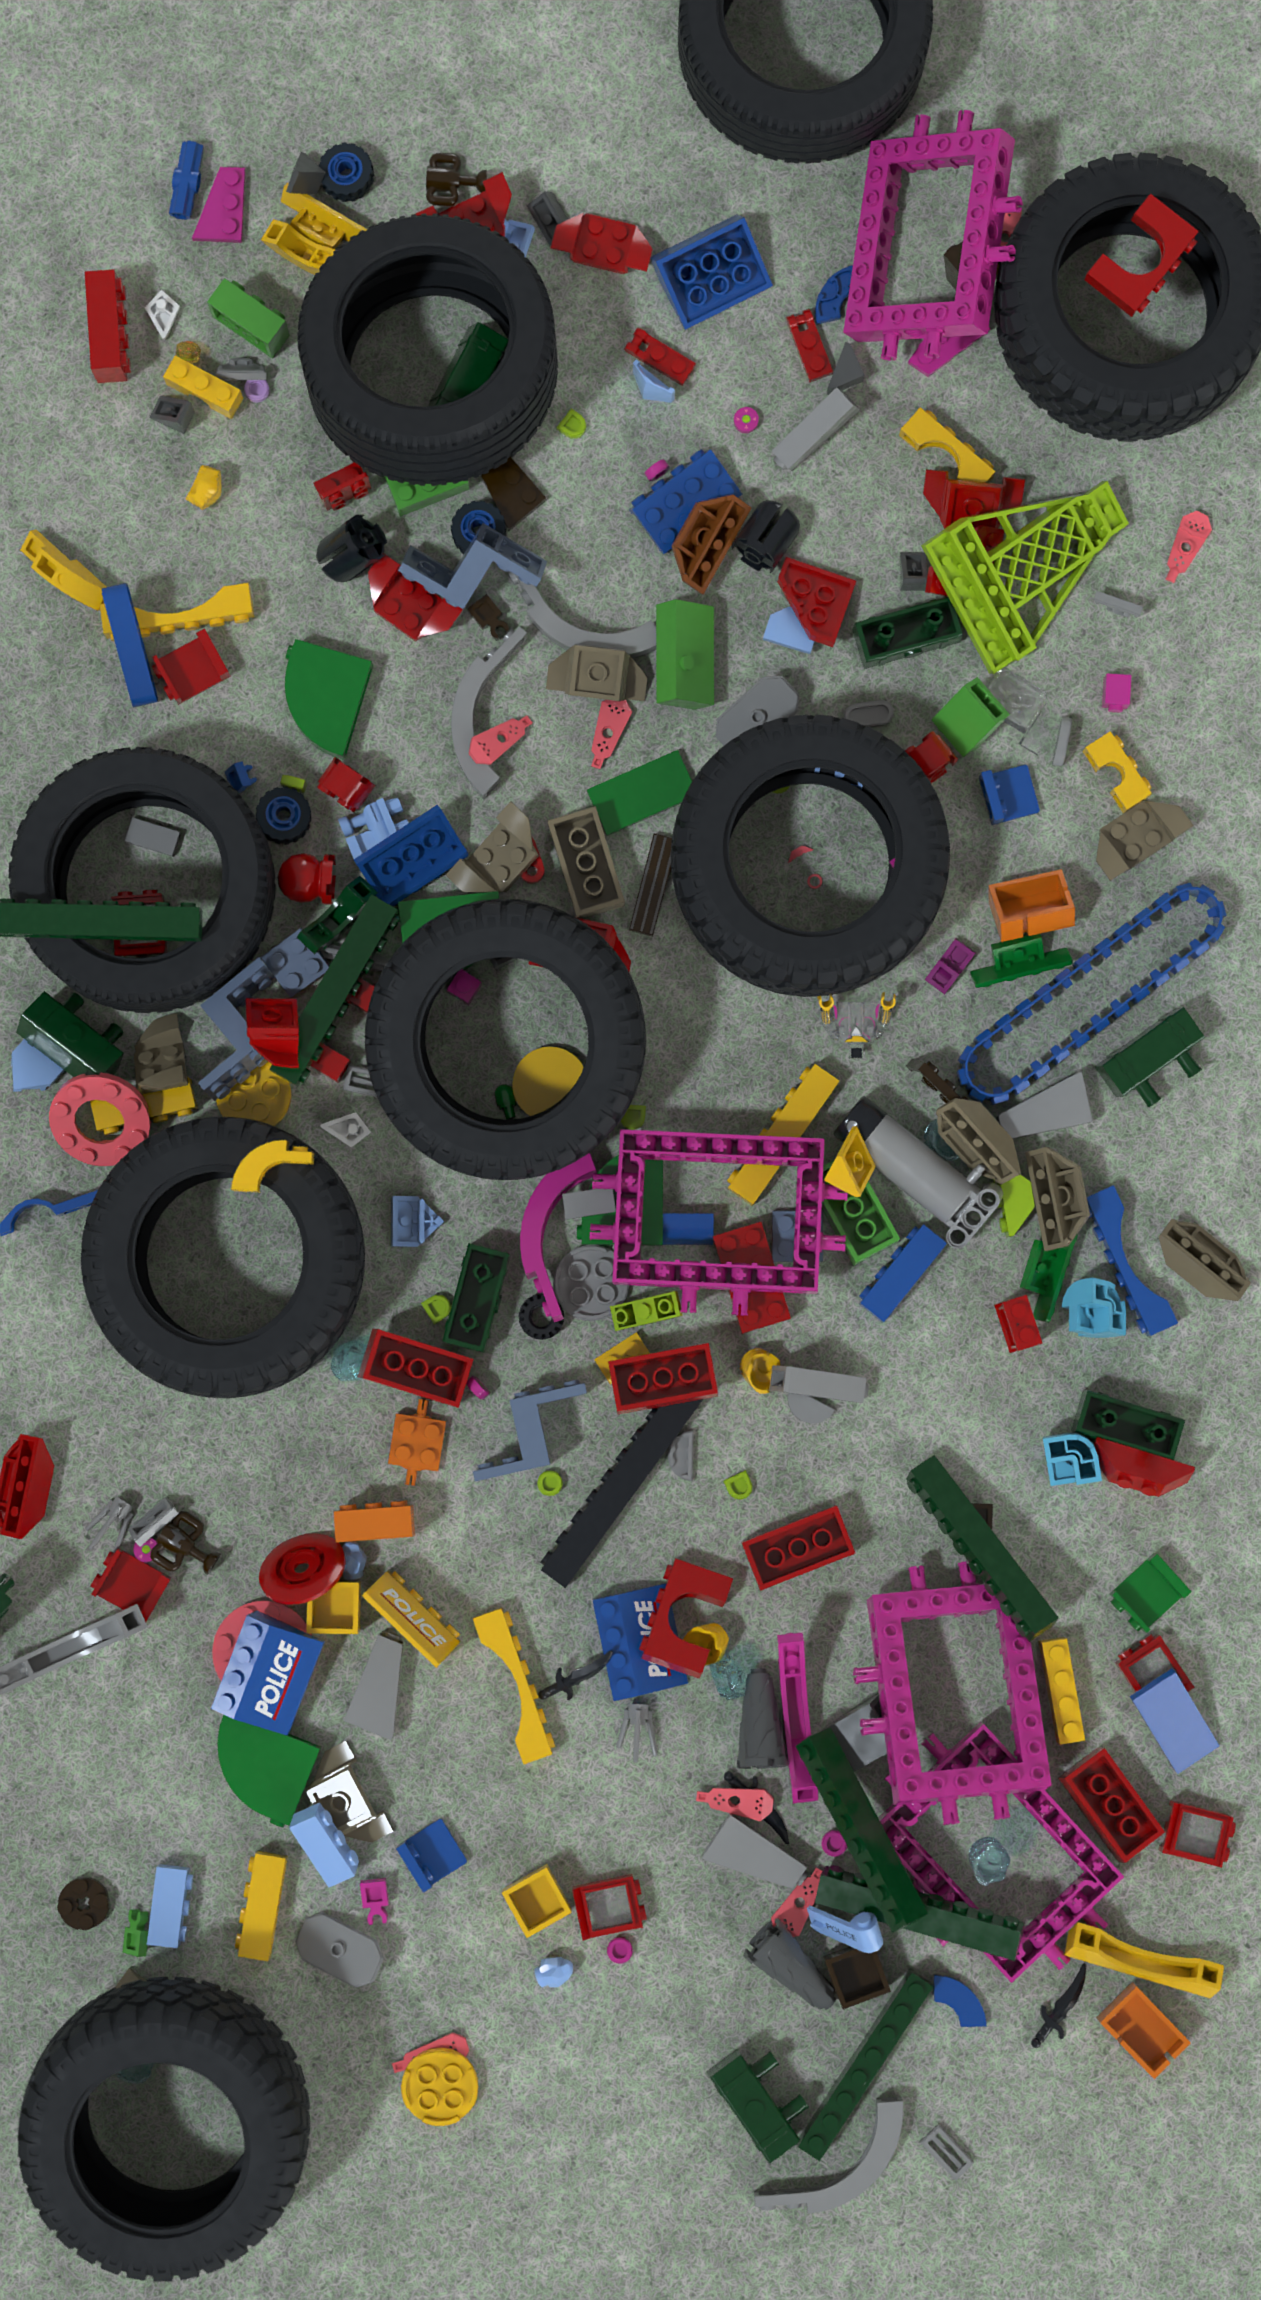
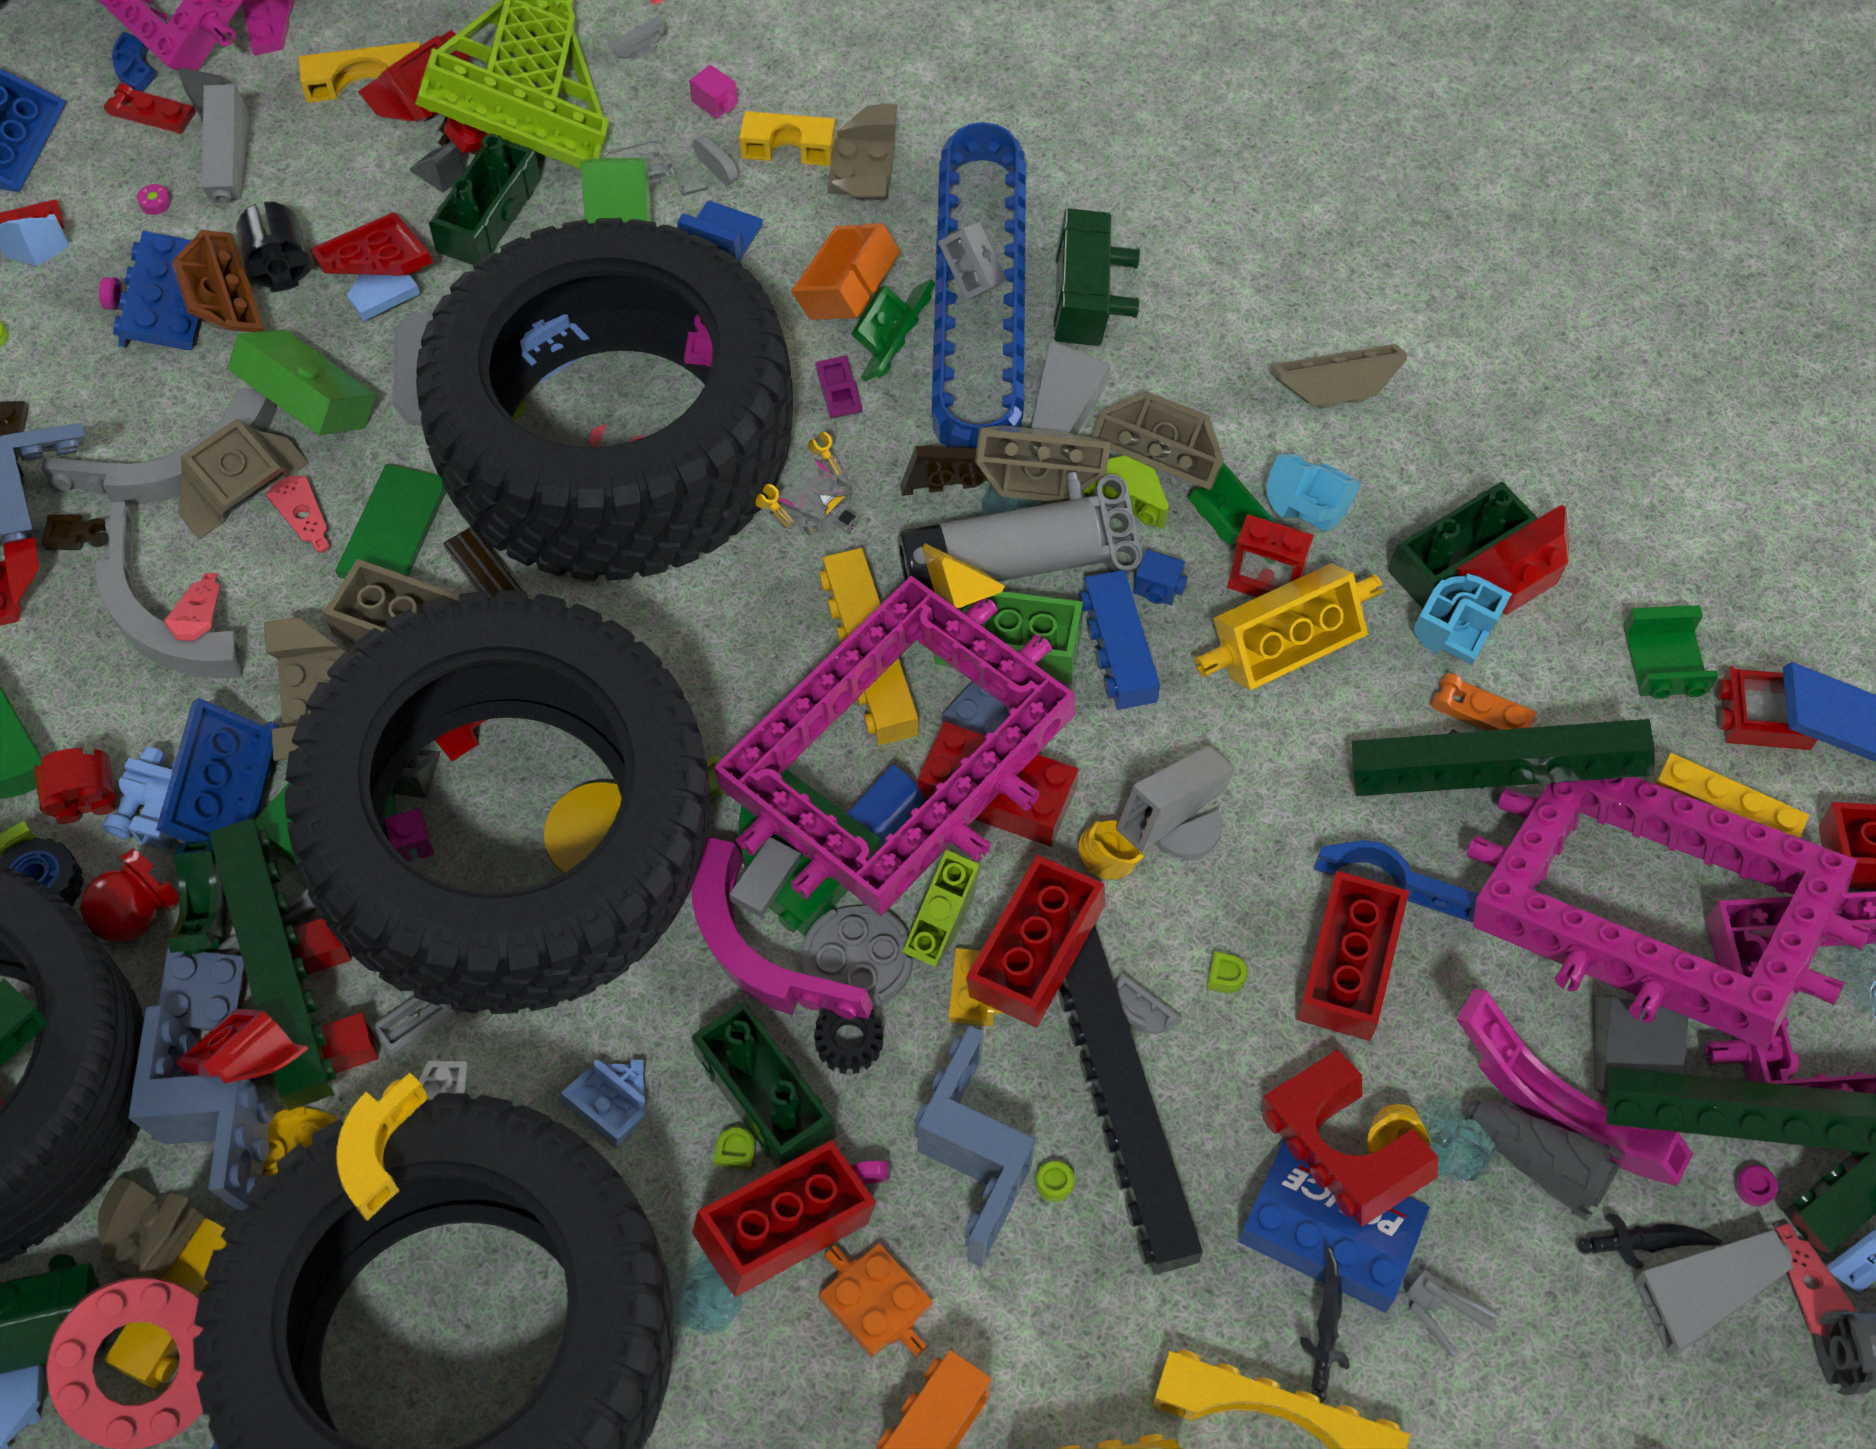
camera: 50 degrees left, 25 degrees down
(747, 1804) = (1640, 1248): coral piece -> none
(869, 1549) = (1422, 889): none -> blue piece
(963, 1265) = (1160, 578): none -> blue brick
(983, 1367) = (1290, 626): none -> yellow brick
(1025, 1512) = (1480, 706): none -> orange plate
(1097, 980) = (972, 260): none -> light grey brick
(1151, 1309) = (1349, 449): blue arch -> none

